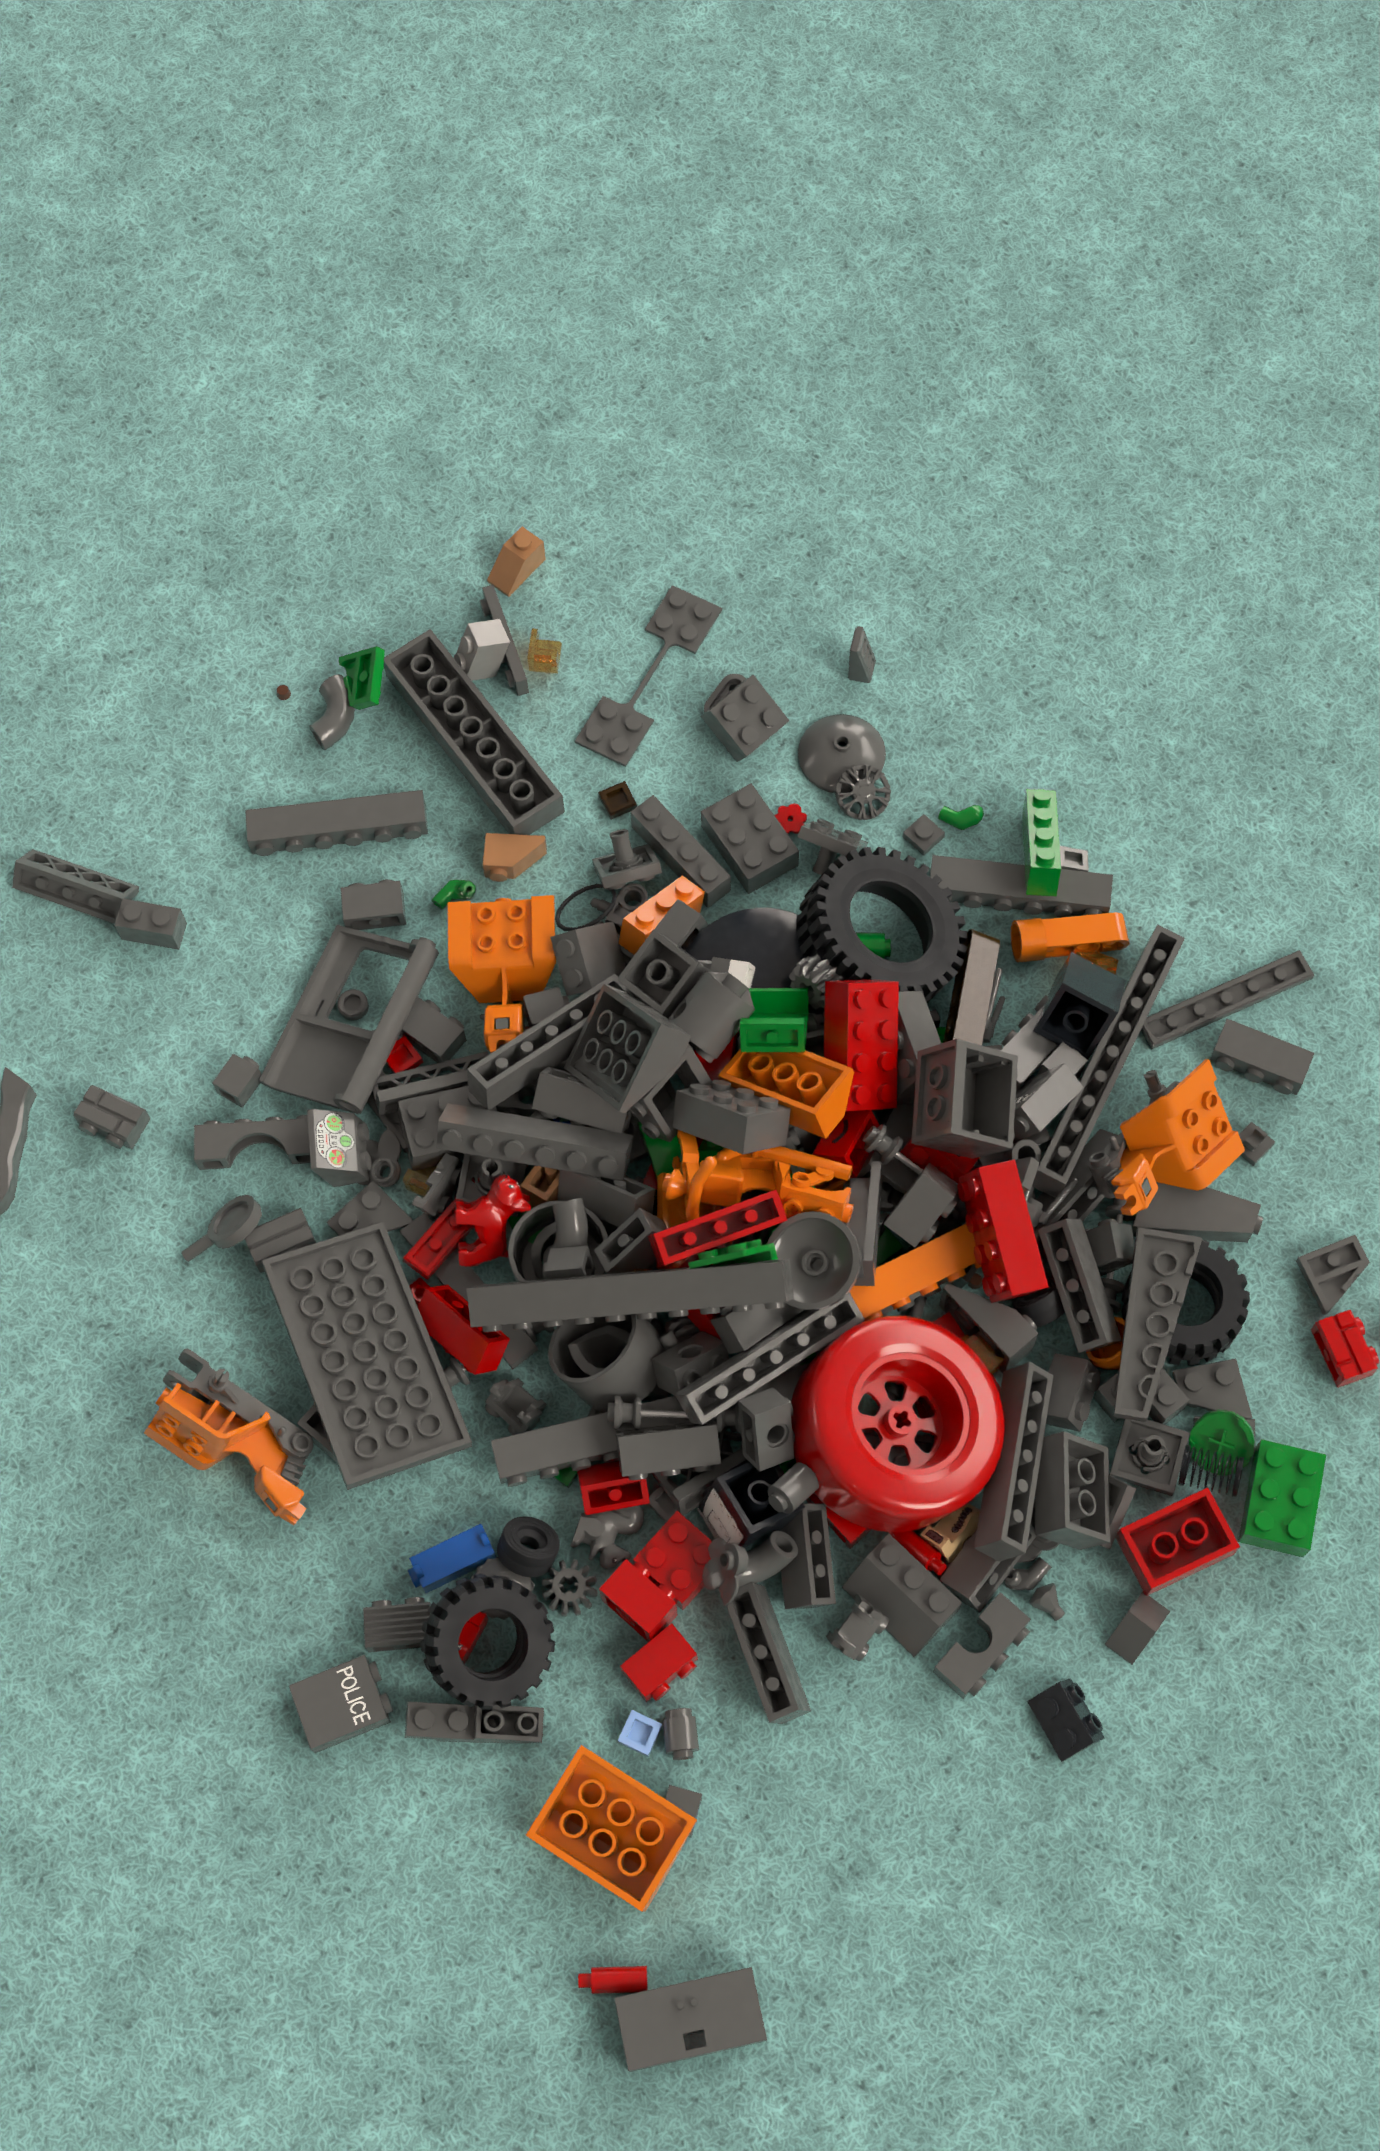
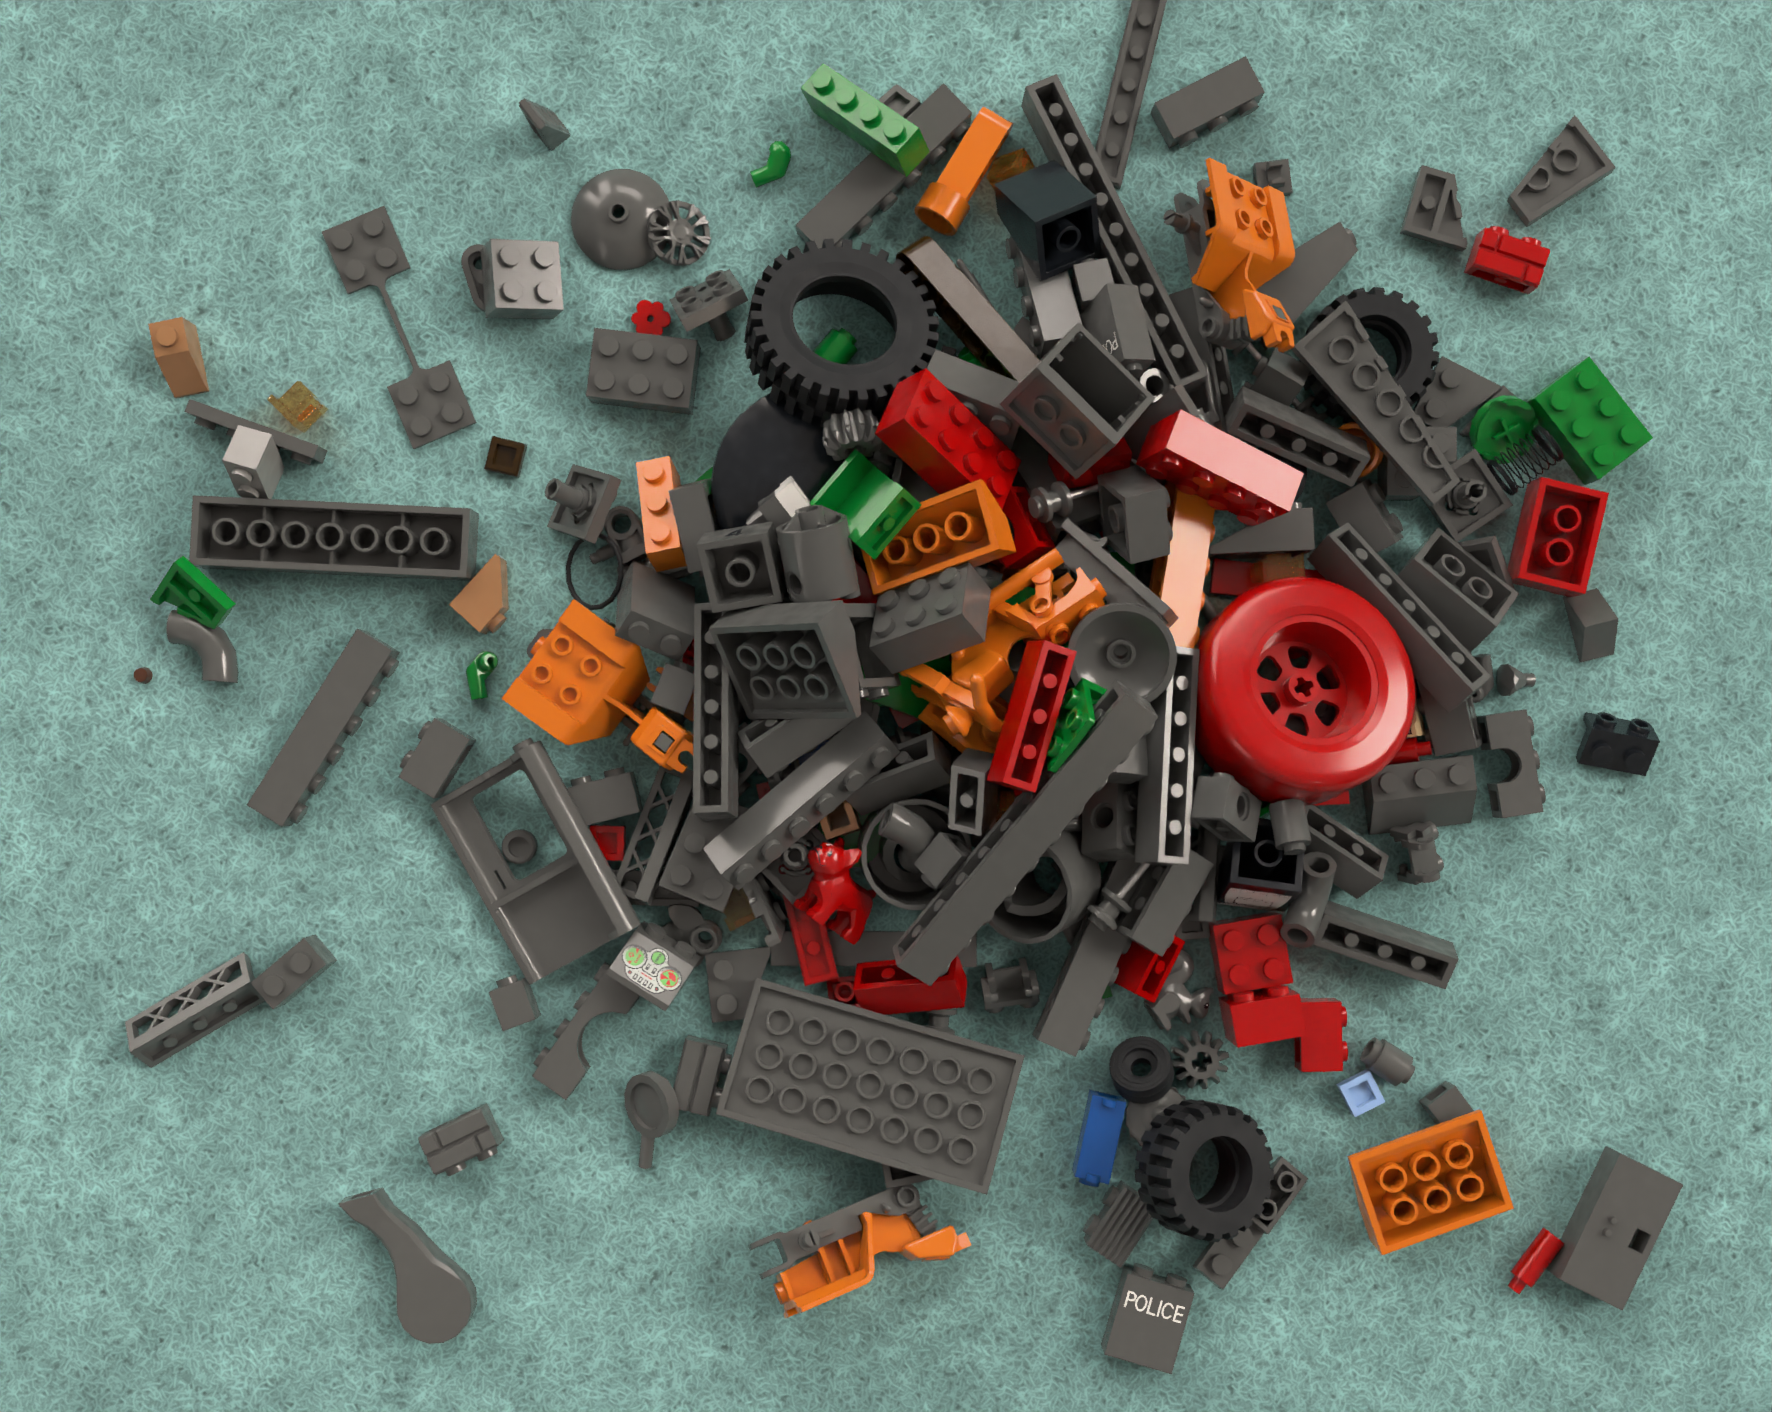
camera: 55 degrees left, 20 degrees up
(680, 849) = (605, 442): dark grey brick -> none
(724, 1568) = (1303, 931): dark grey plate -> none
(923, 834) = (762, 213): dark grey plate -> none

